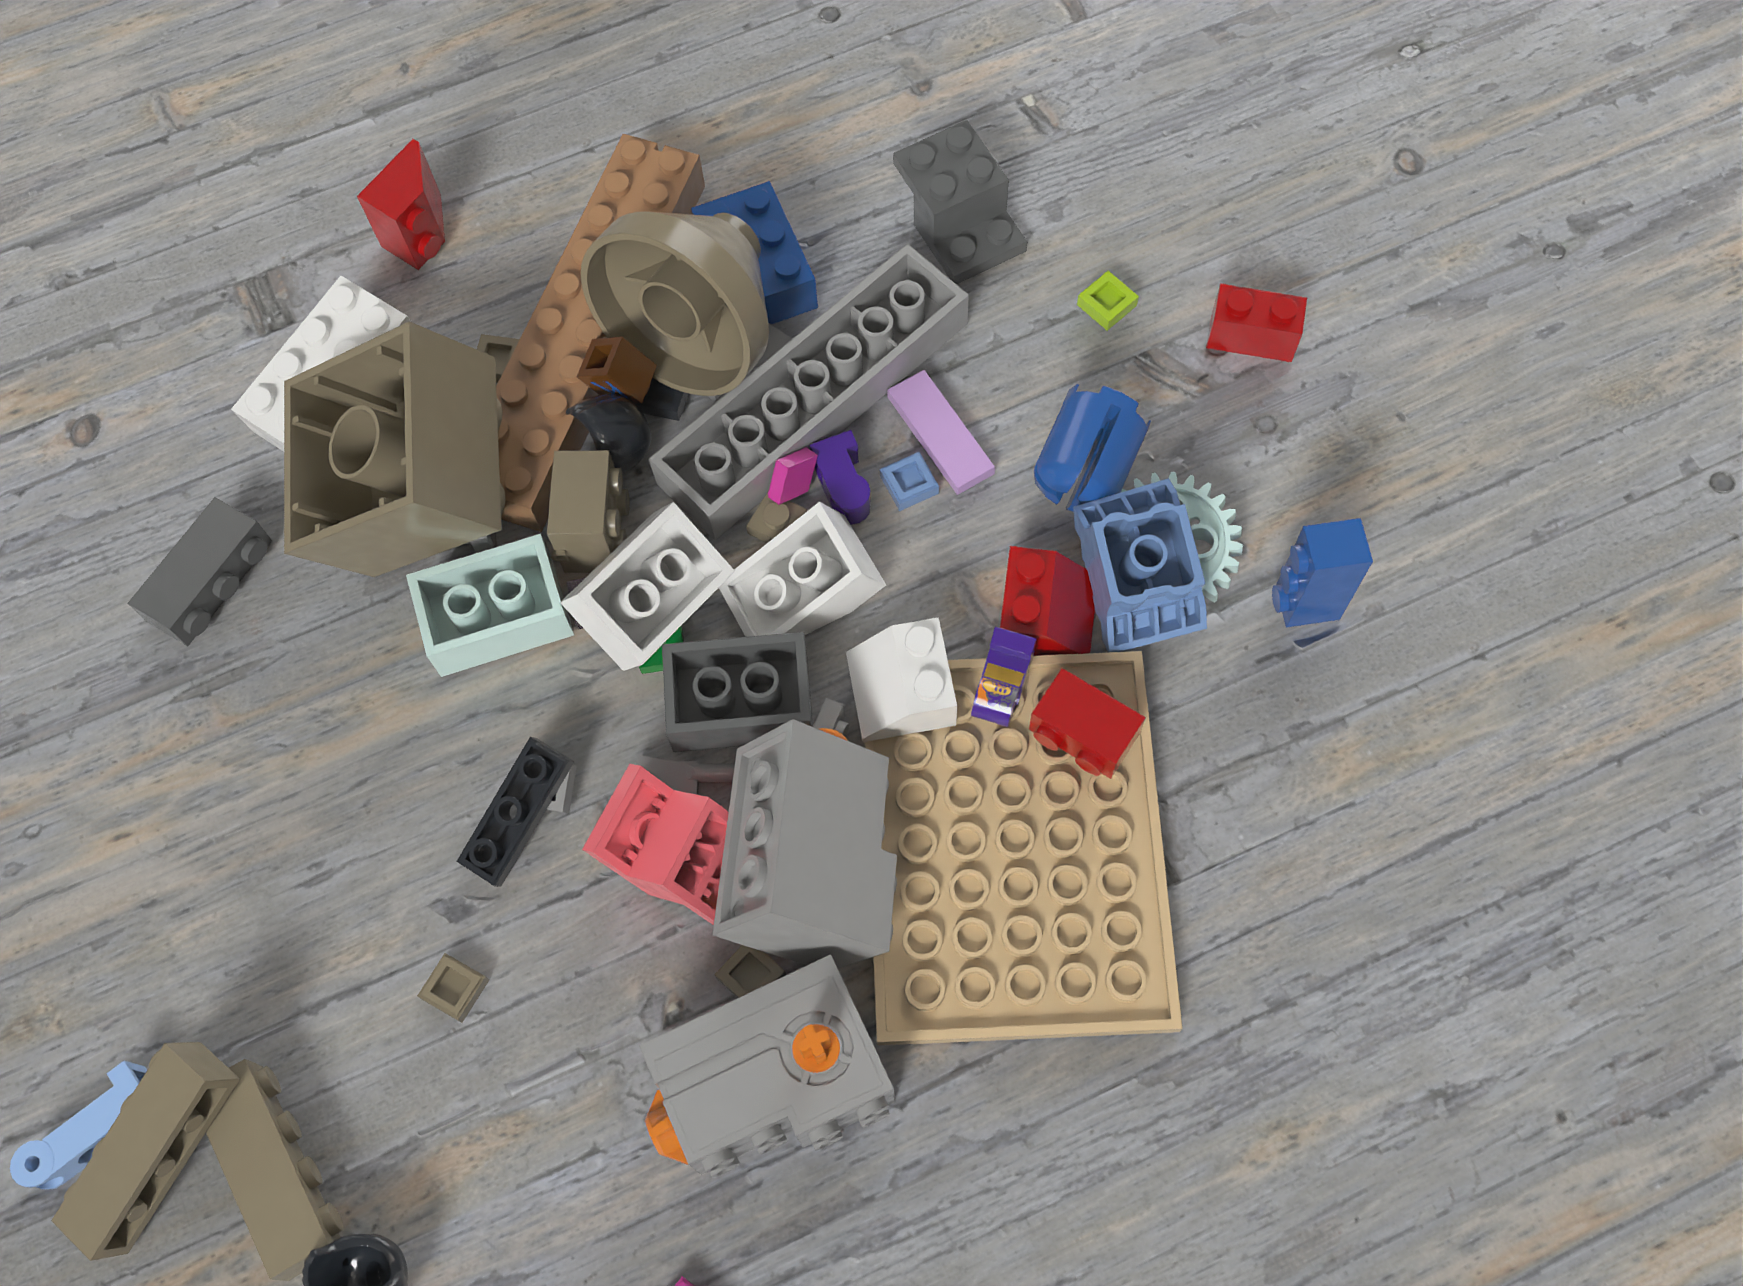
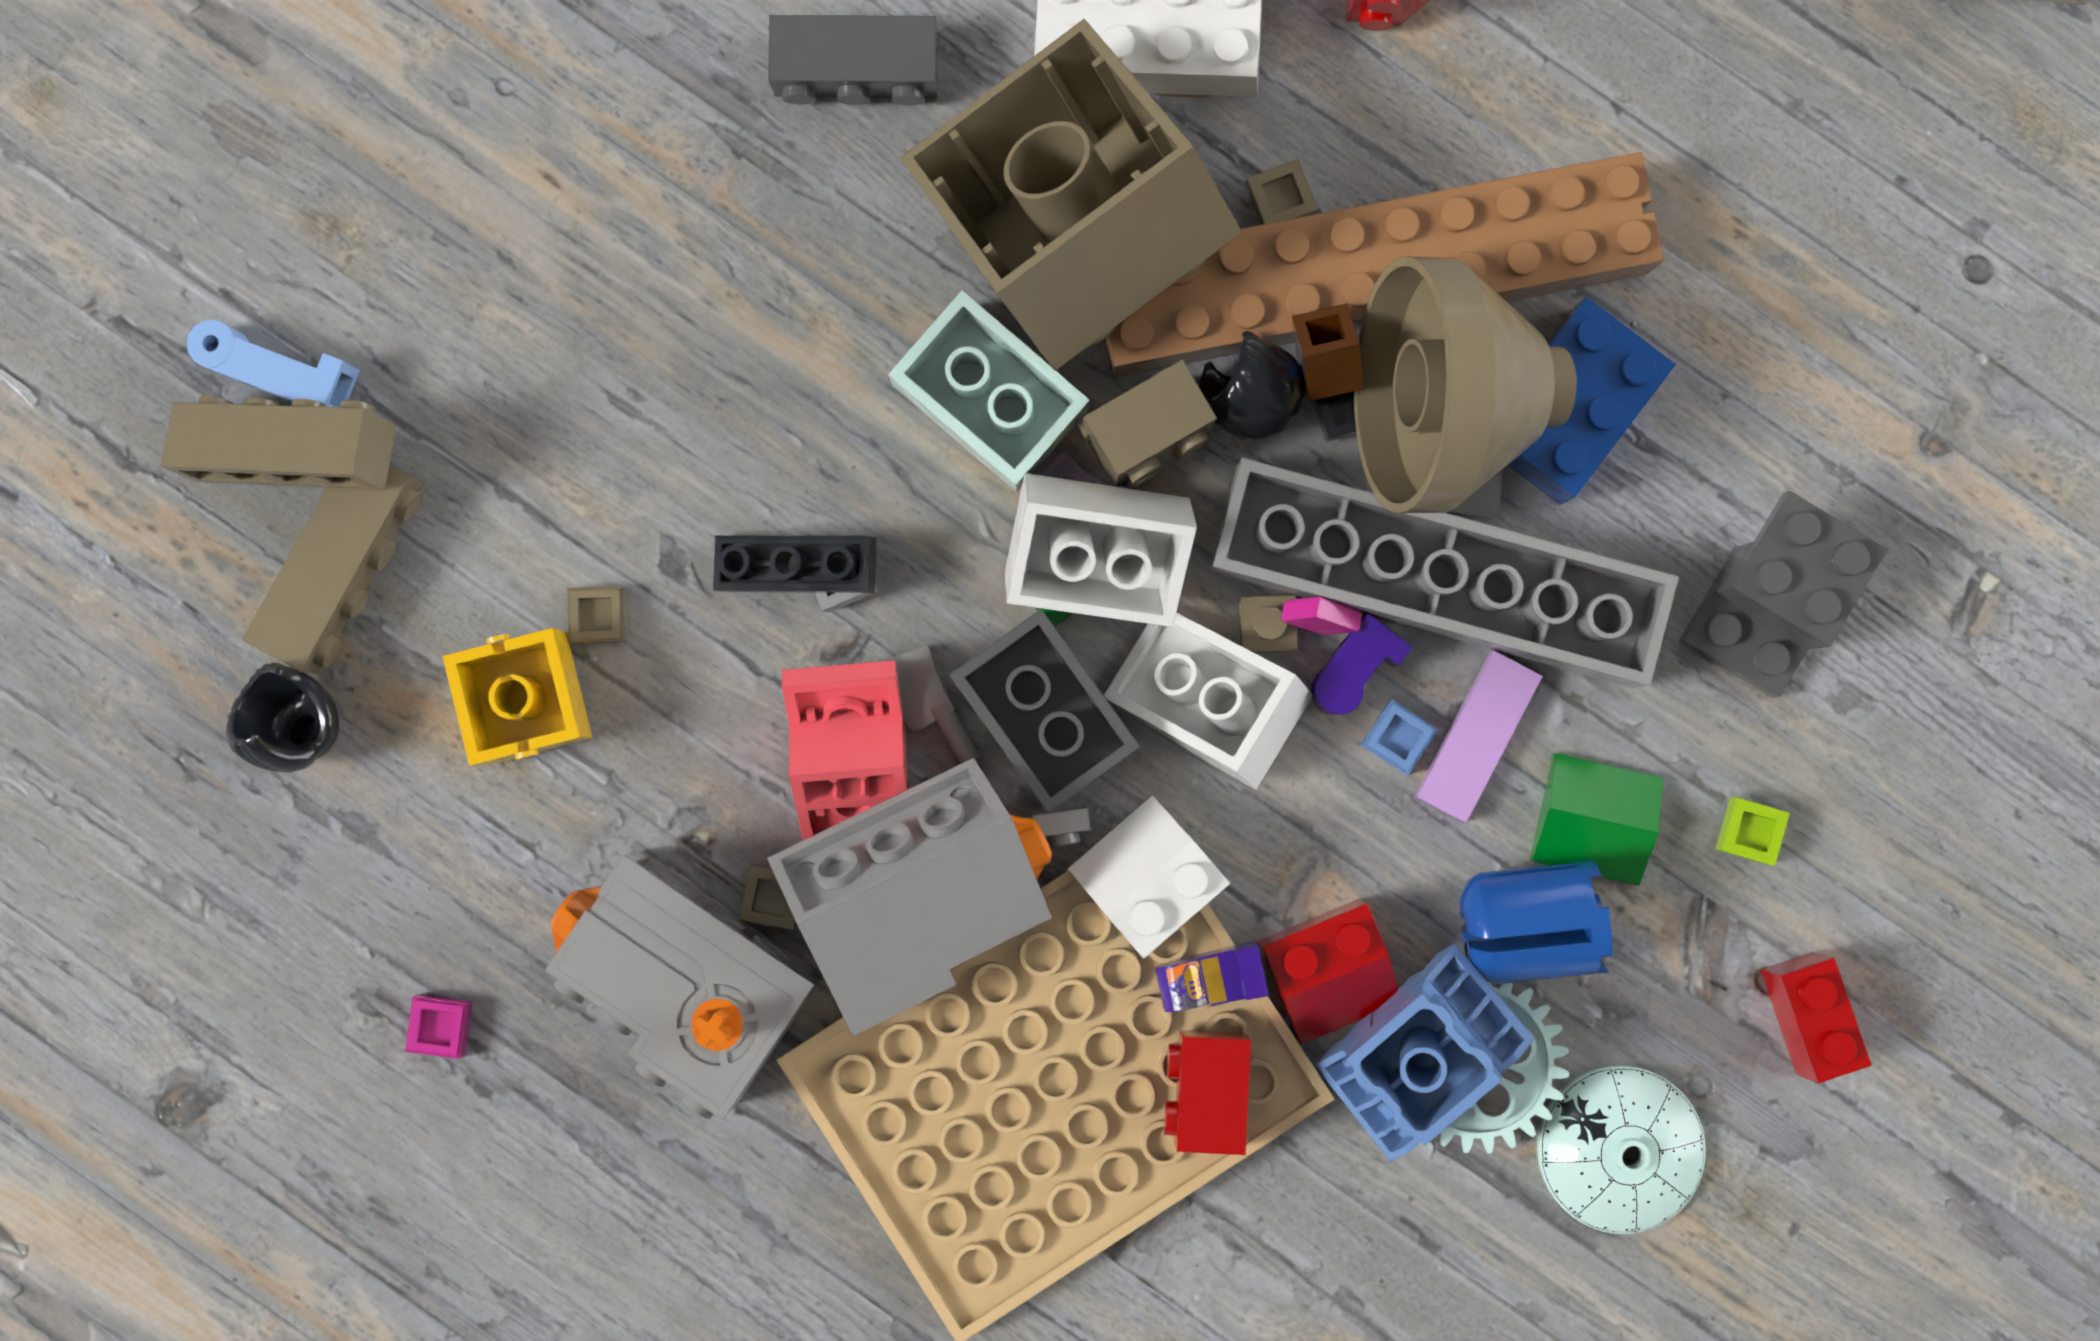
camera: 55 degrees right, 20 degrees up
(469, 1077) = (517, 696): none -> yellow brick
(1037, 384) = (1598, 817): none -> green slope
(1273, 507) = (1594, 1126): none -> light aqua dish
(1322, 572) = (1519, 1255): blue brick -> none

